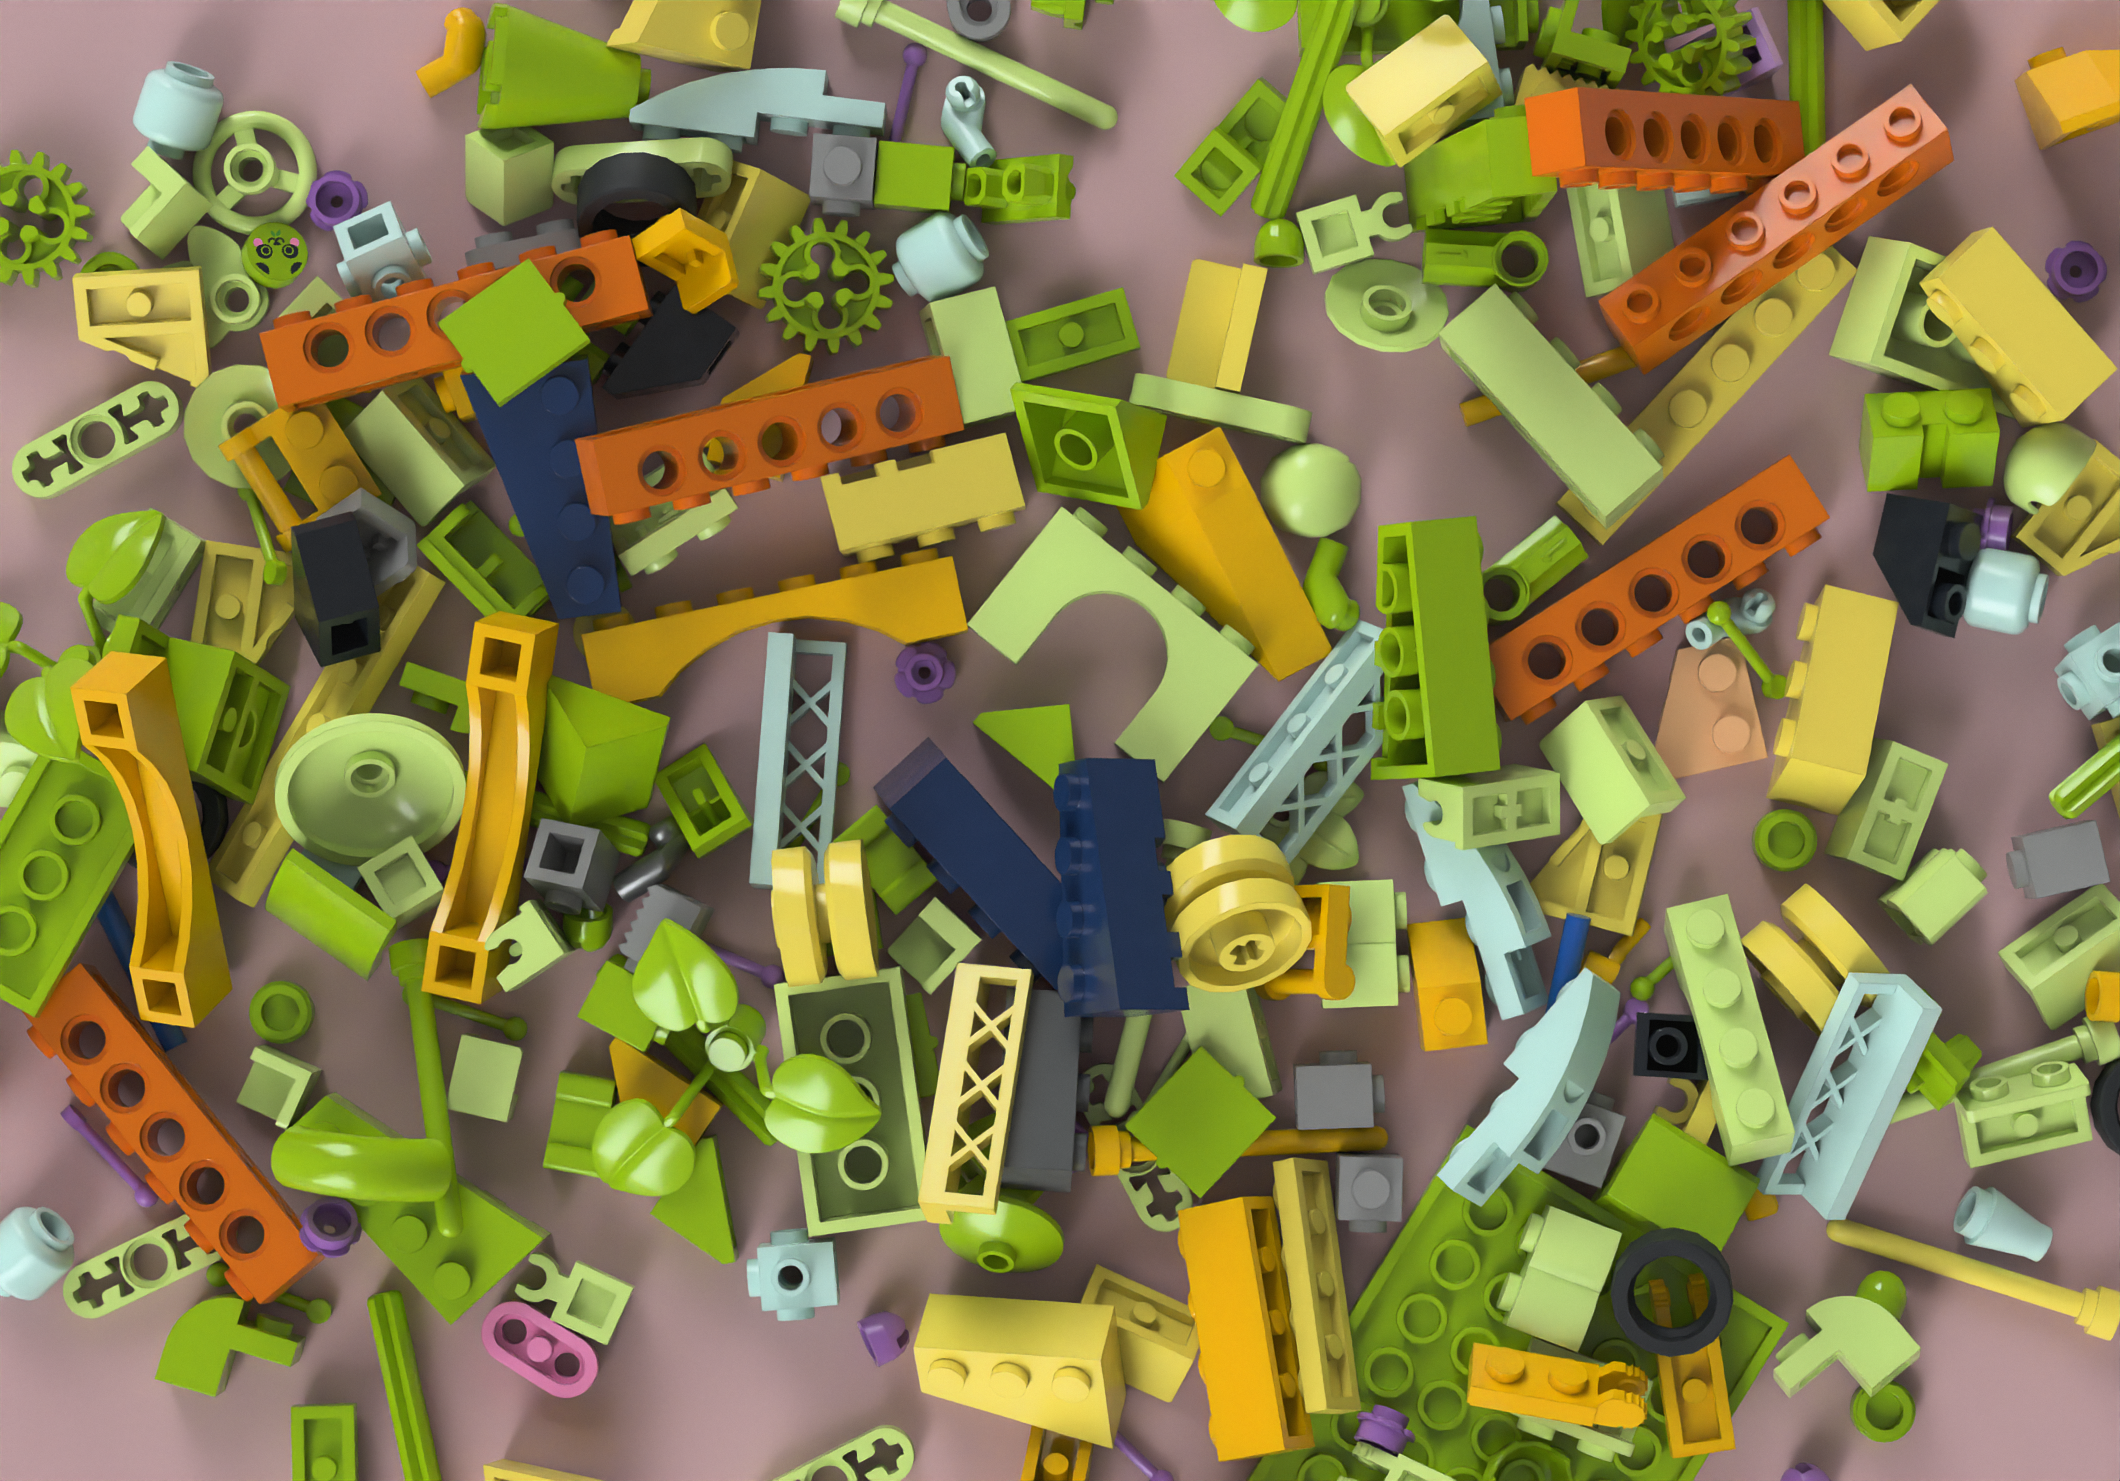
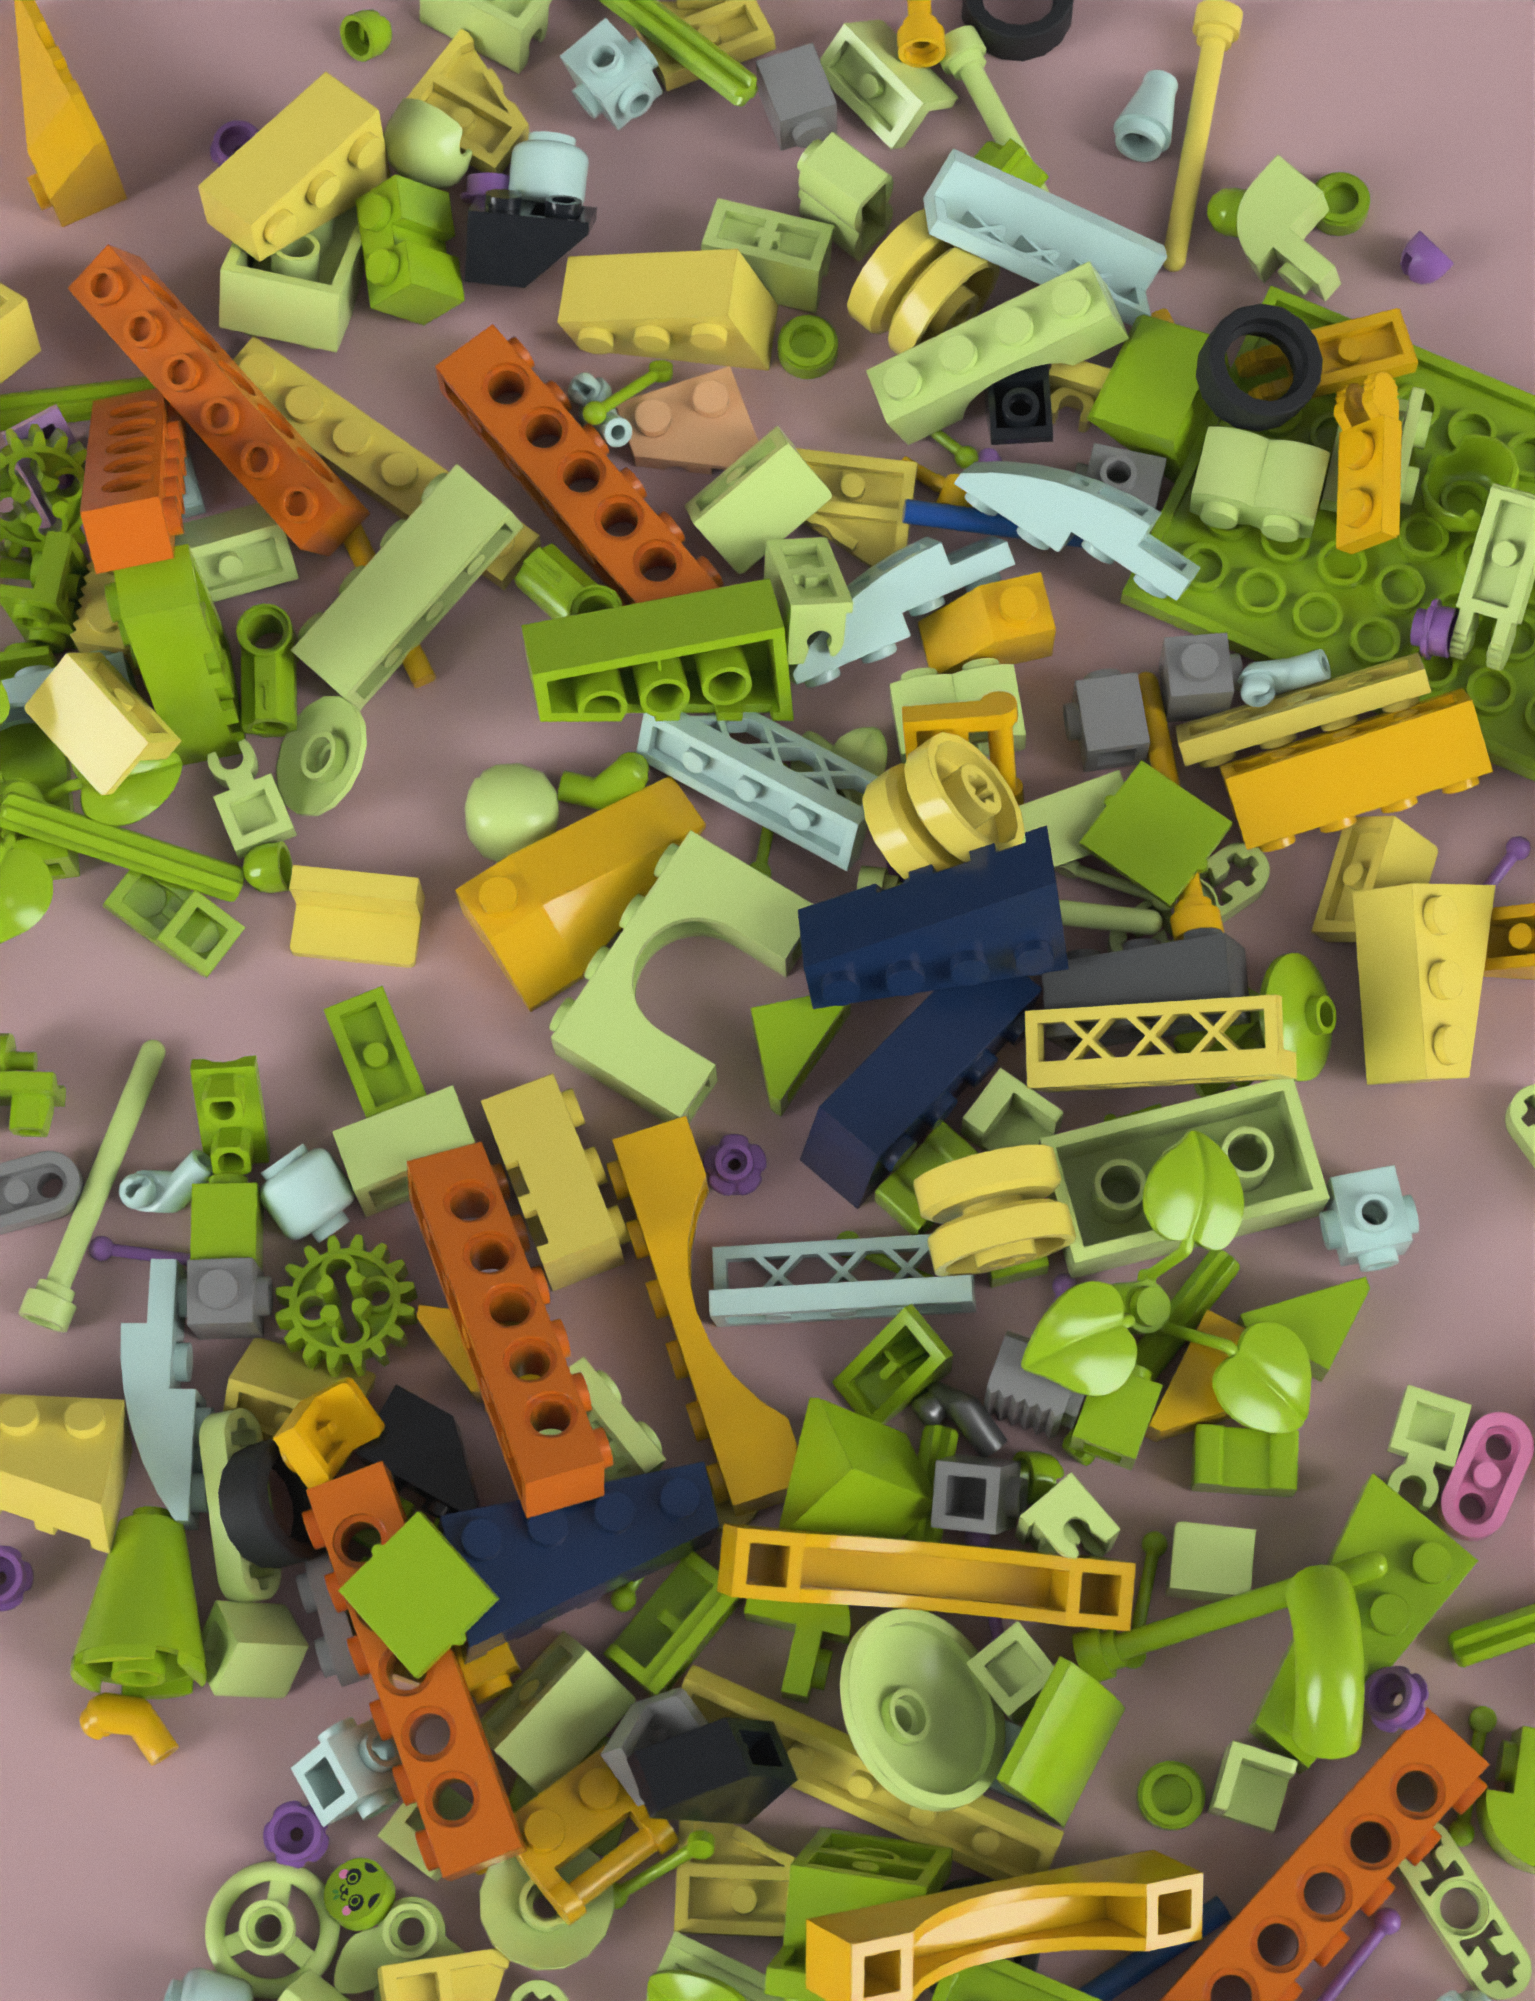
camera: 90 degrees left, 15 degrees down
(884, 1336) = (1417, 1131): medium lavender hinge -> none
(1089, 444) = (485, 1018): lime slope -> none
(1221, 408) = (437, 905): yellowish green beam -> none
(1358, 1279) = (1272, 677): none -> light aqua arm
(2023, 1113) = (1040, 104): yellowish green bracket -> none

